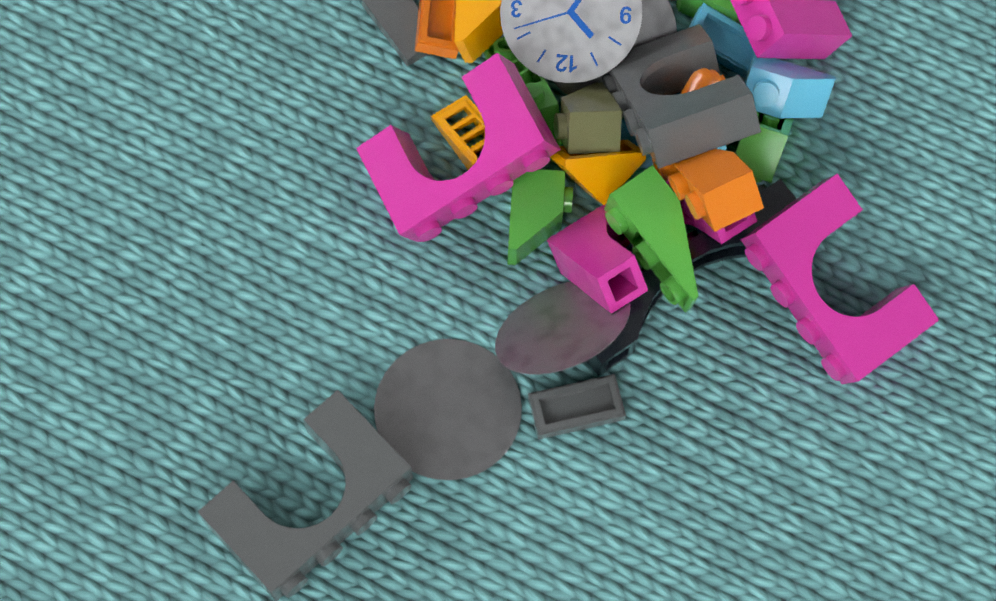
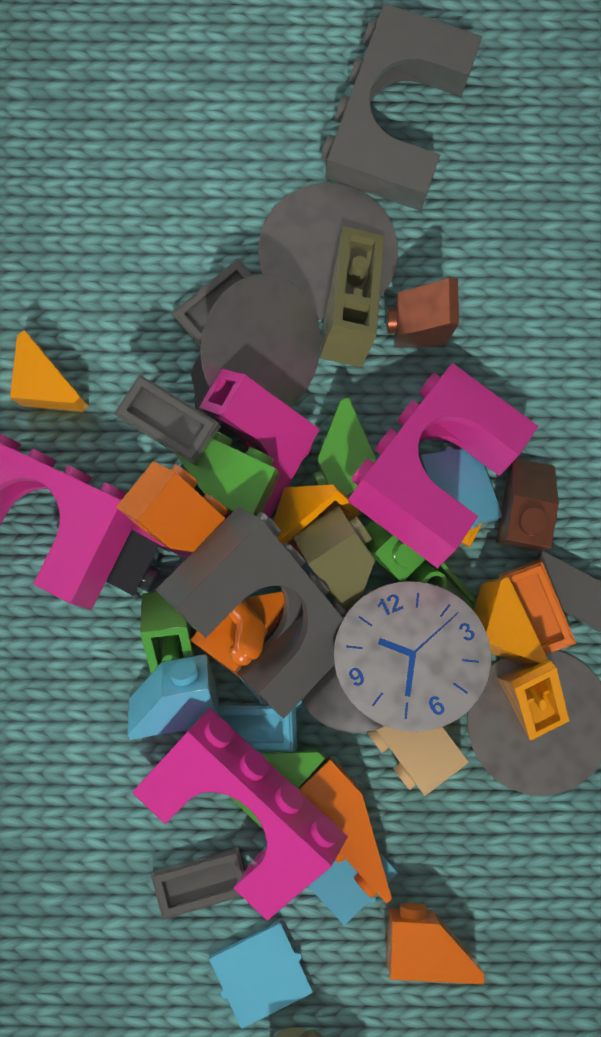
camera: 150 degrees right, 15 degrees up
(400, 93) = (529, 506): none -> copper slope
(400, 287) = (424, 315): none -> copper slope
(450, 136) = (464, 480): none -> medium azure piece
(450, 343) = (353, 298): none -> olive slope
(683, 277) = (167, 419): none -> dark grey tile
(775, 407) = (39, 382): none -> light orange slope

